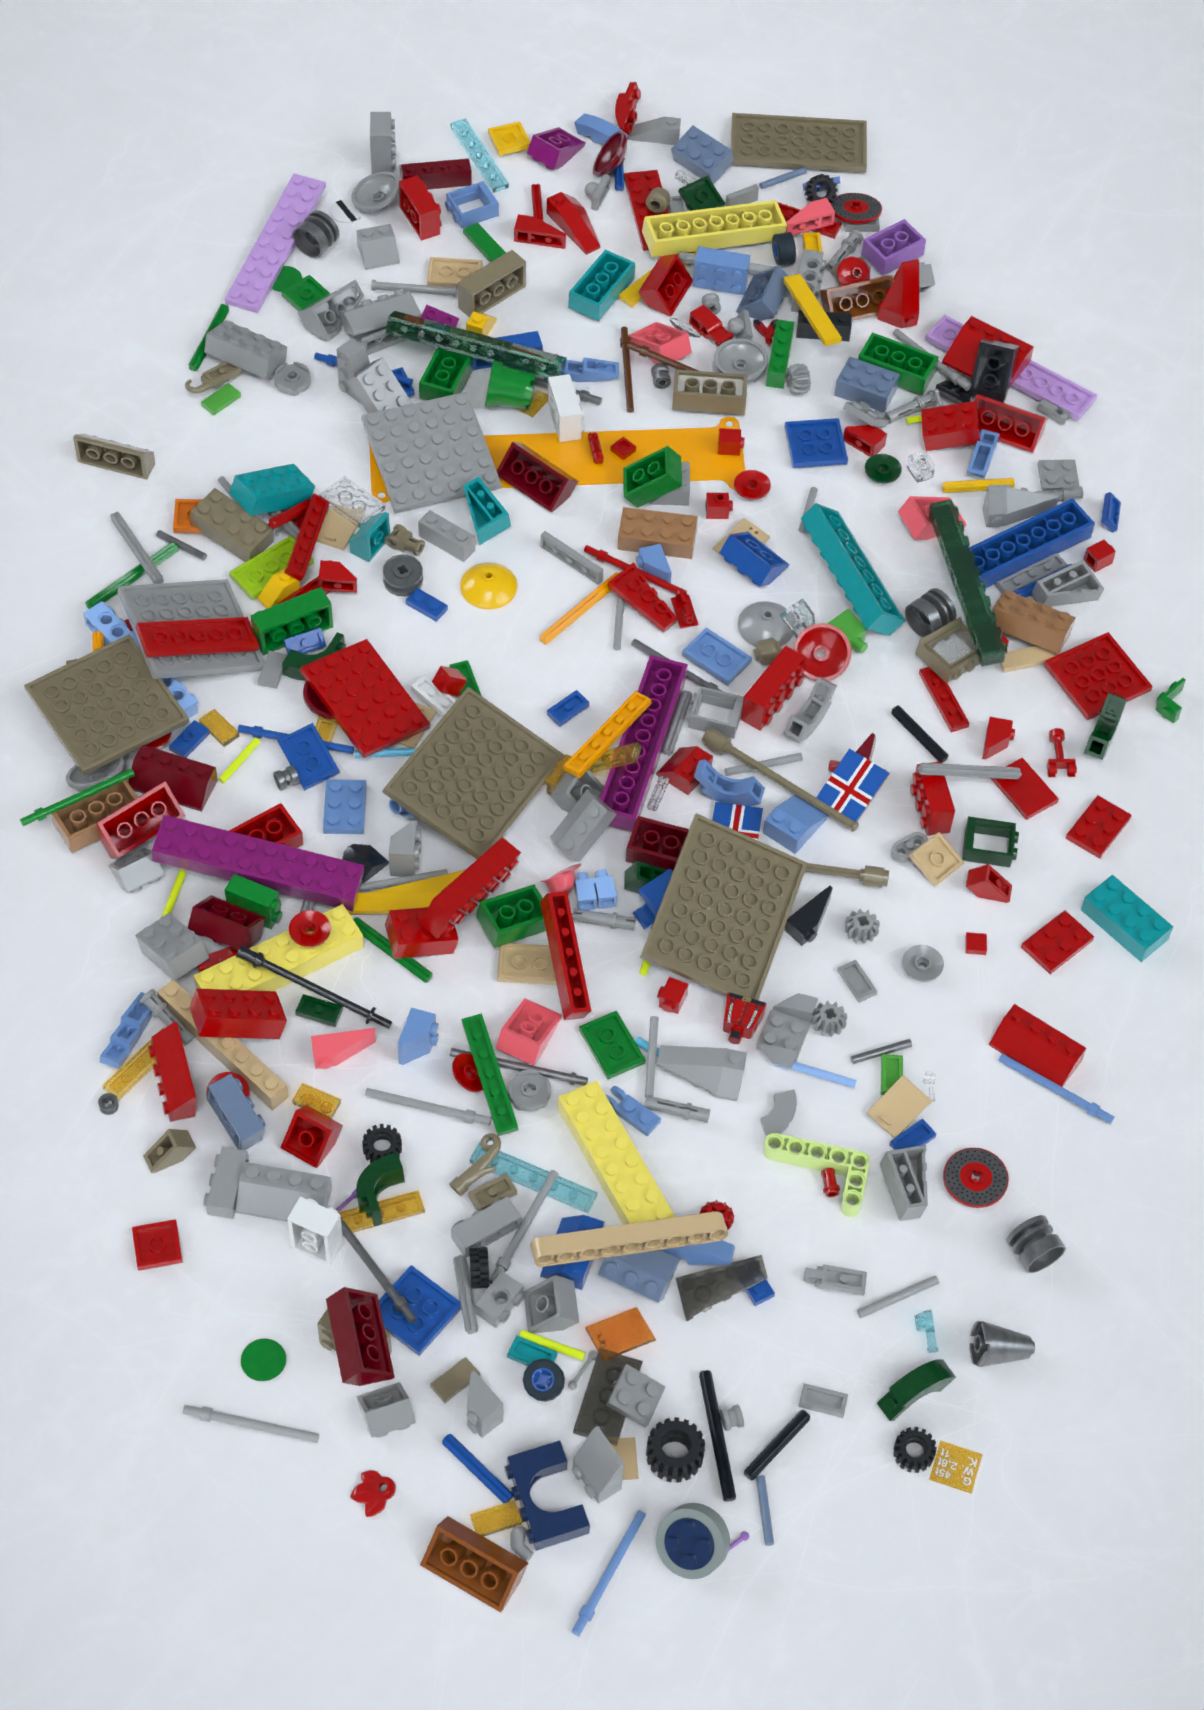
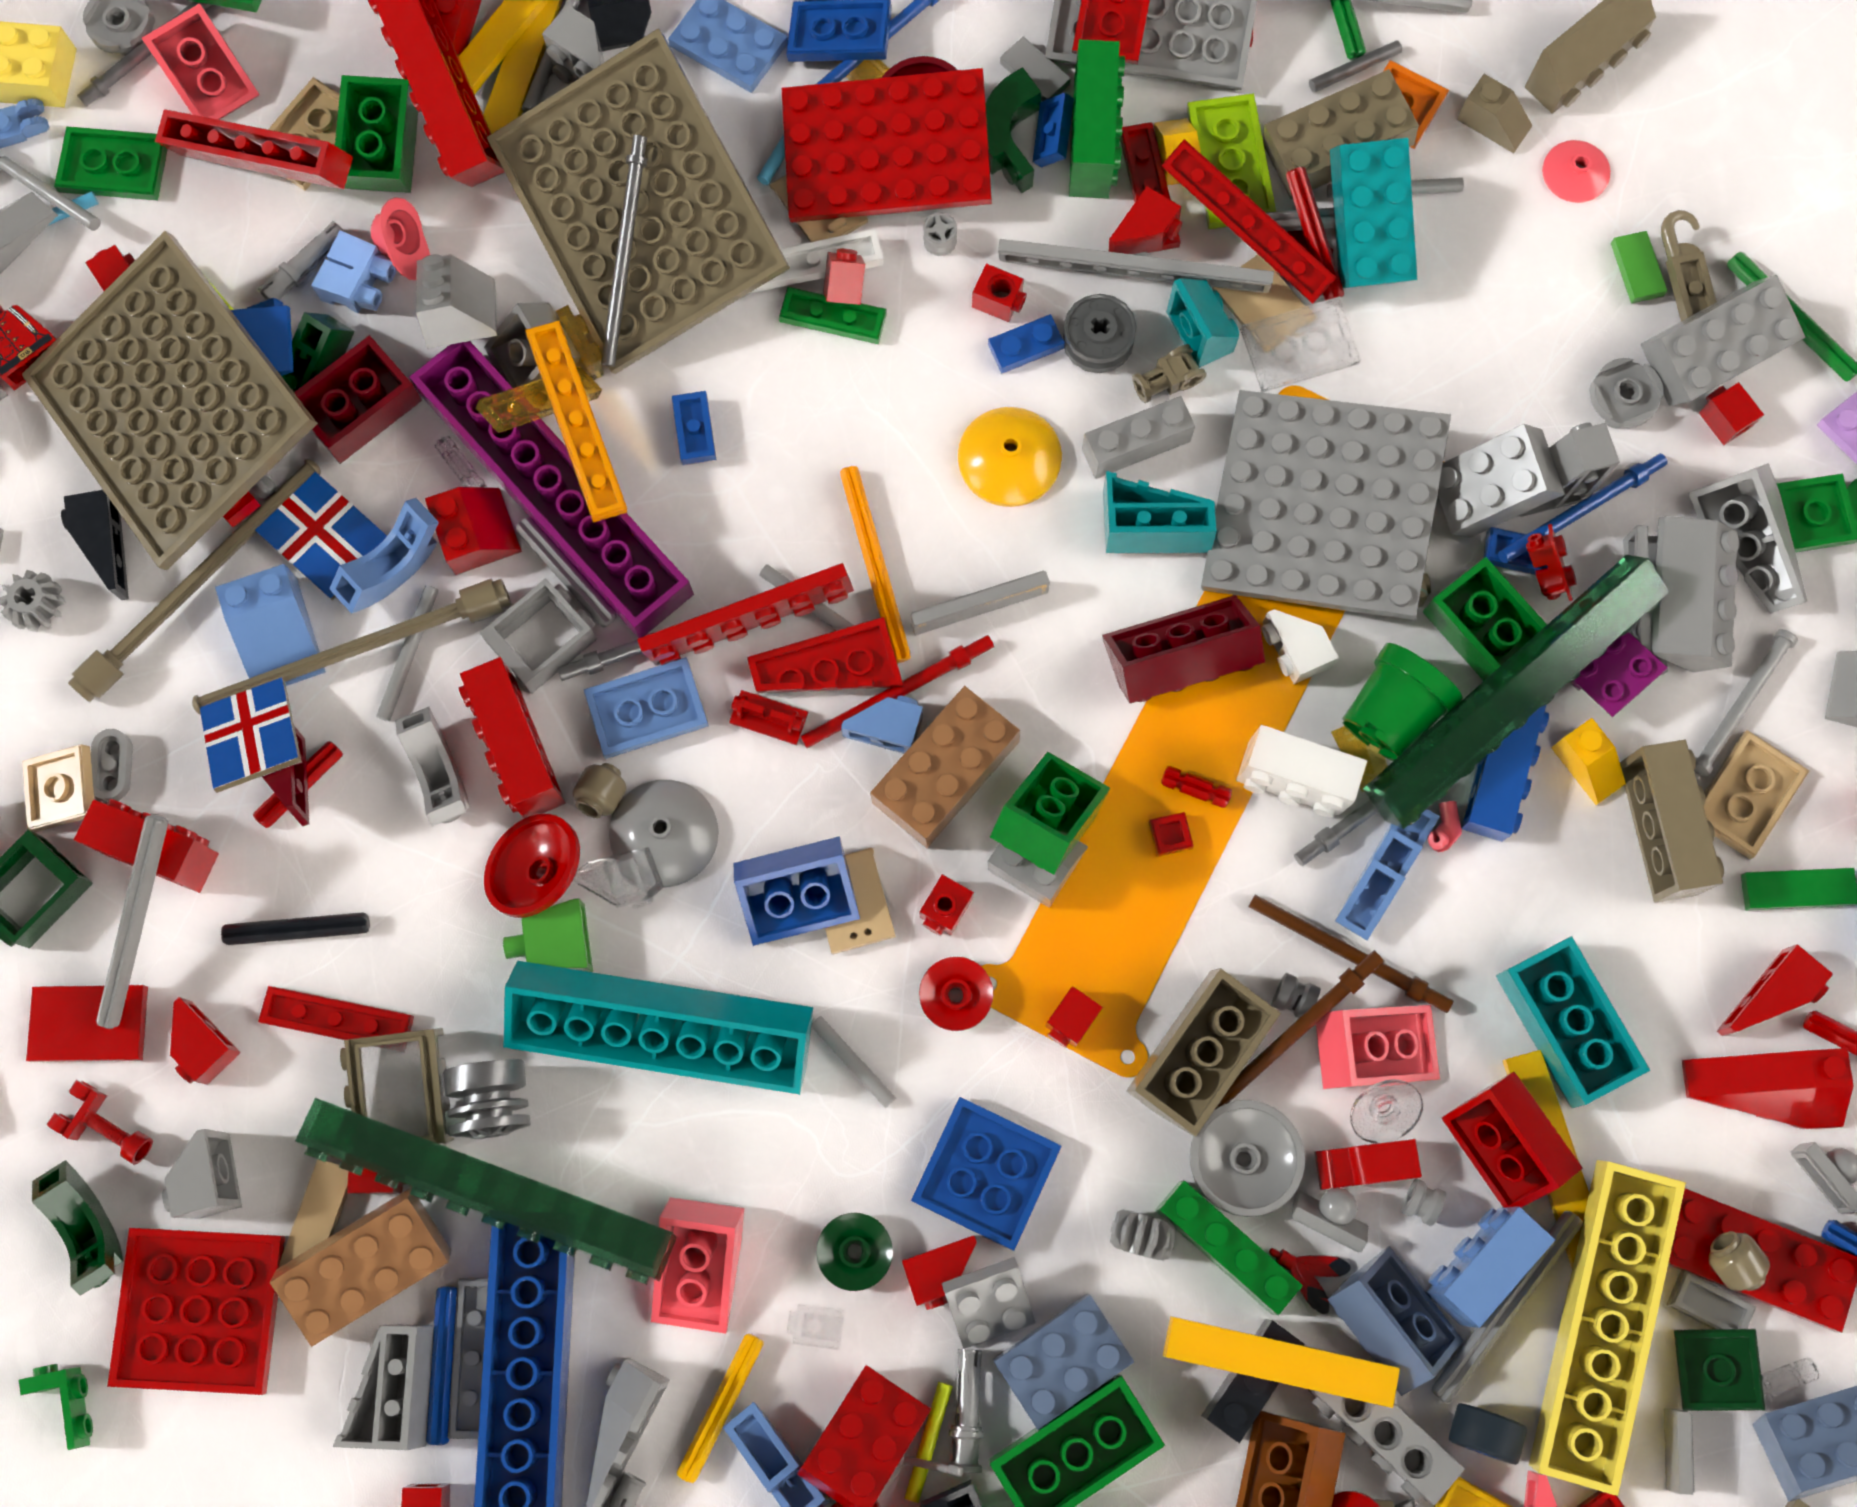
camera: 125 degrees right, 20 degrees up
(175, 481) = (1495, 113): none -> dark tan slope
(182, 442) = (1569, 180): none -> coral dish
(279, 333) = (1730, 412): none -> red brick
(356, 568) = (1134, 265): none -> light grey tile
(394, 660) = (944, 227): none -> light grey wheel
(401, 365) = (1550, 551): none -> red hinge
(410, 623) = (993, 280): none -> red brick
(459, 771) = (636, 164): none -> flat silver bar
(503, 435) = (1300, 644): none -> white slope
(647, 626) = (737, 618): none -> red plate
(1047, 694) = (203, 1178): none -> light grey slope

